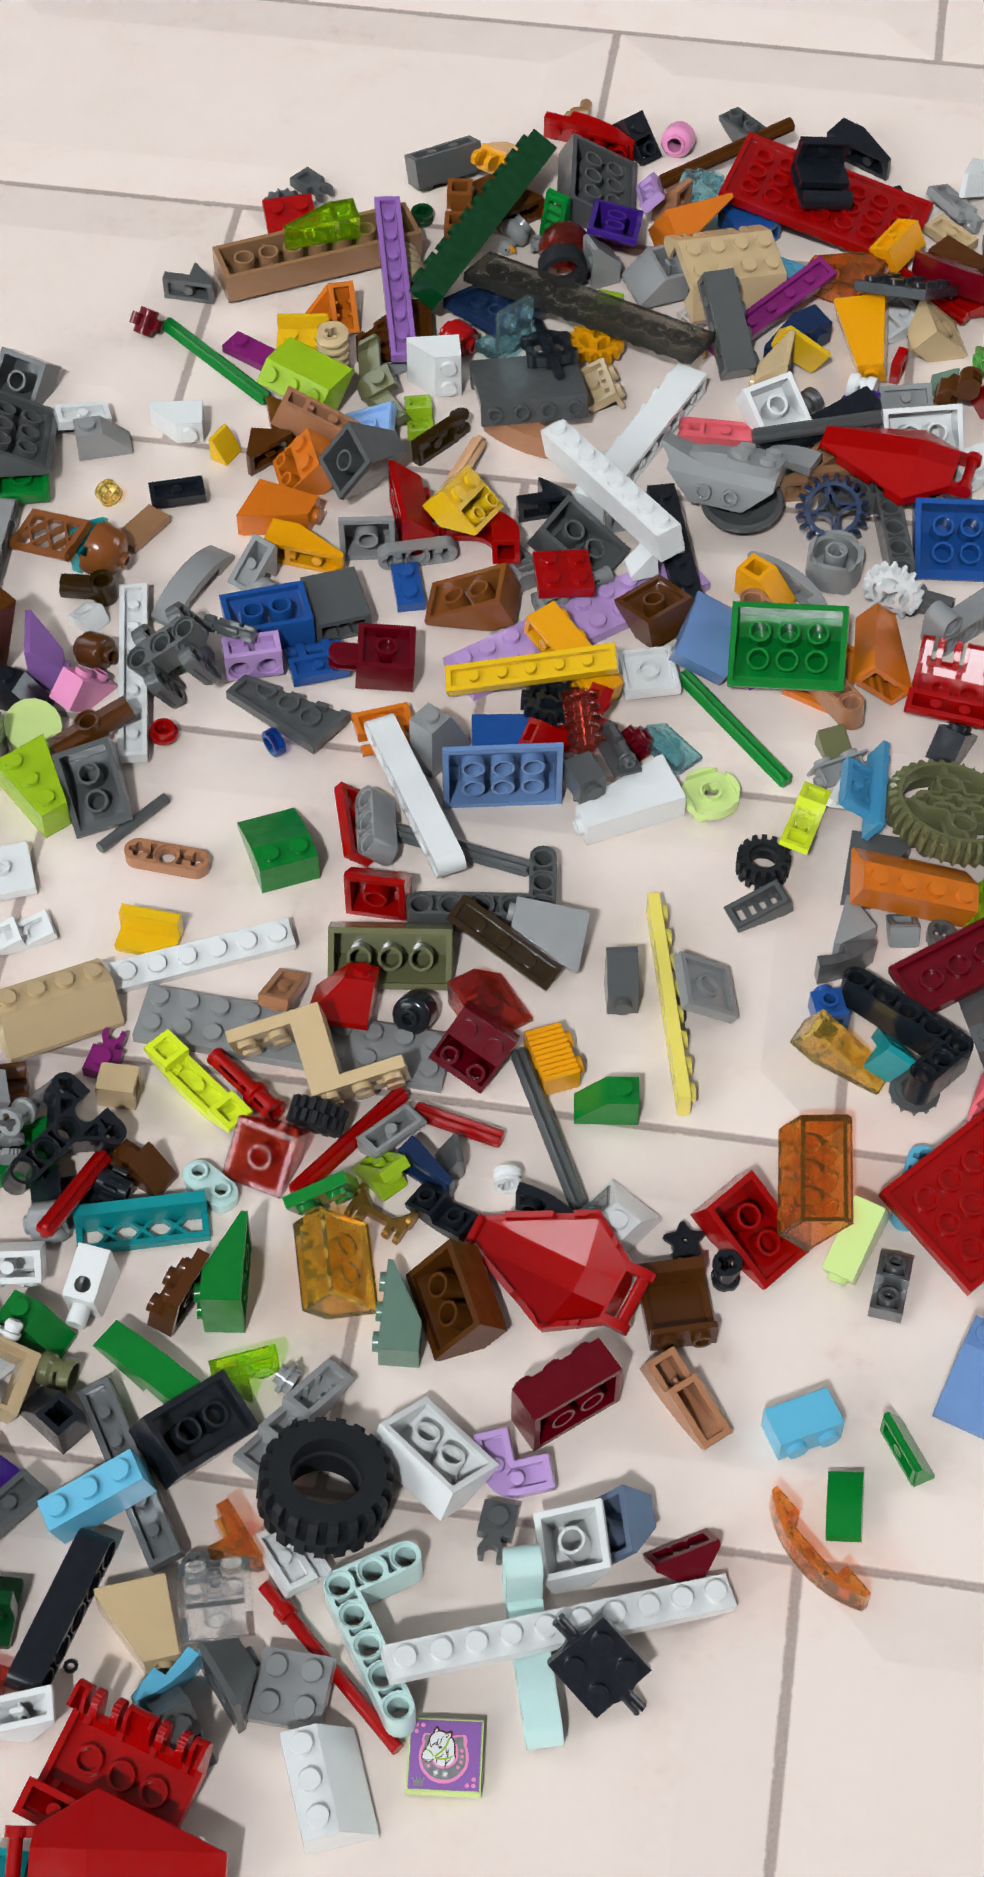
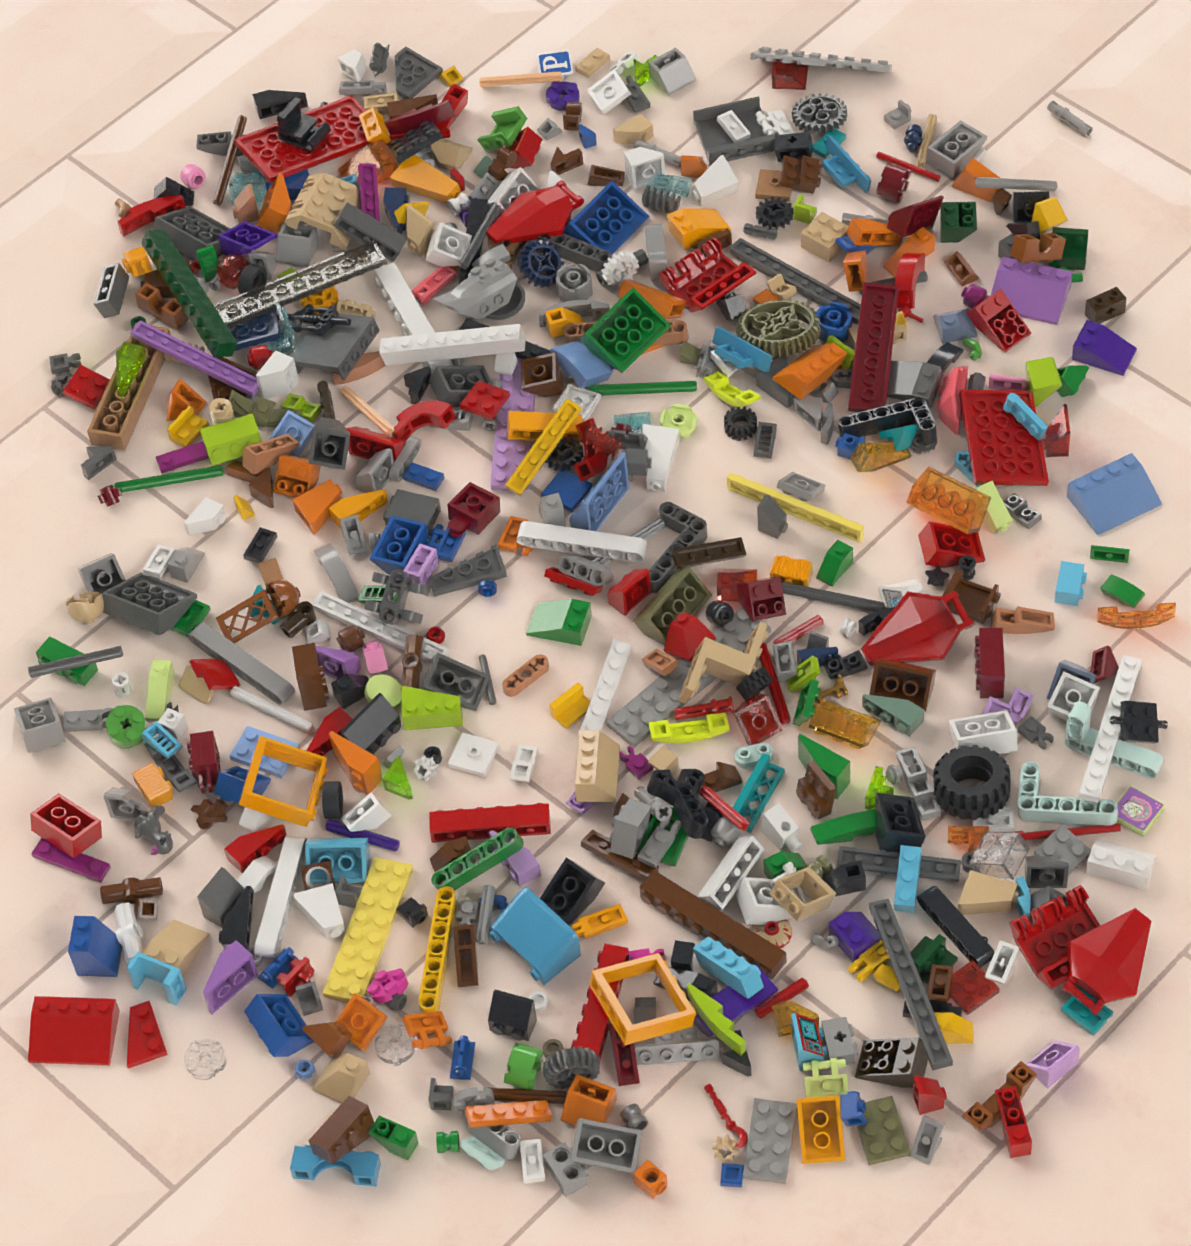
camera: 50 degrees left, 0 degrees up
(108, 492) = (232, 577): clear yellow bush -> none
(113, 1184) = (727, 792): black gear -> none
(229, 628) = (404, 561): dark grey axle -> none
(463, 503) = (401, 414): yellow slope -> none
(475, 600) = (462, 451): dark orange slope -> none
(552, 928) = (720, 526): light grey slope -> none
(650, 192) = (230, 210): lavender tile -> none

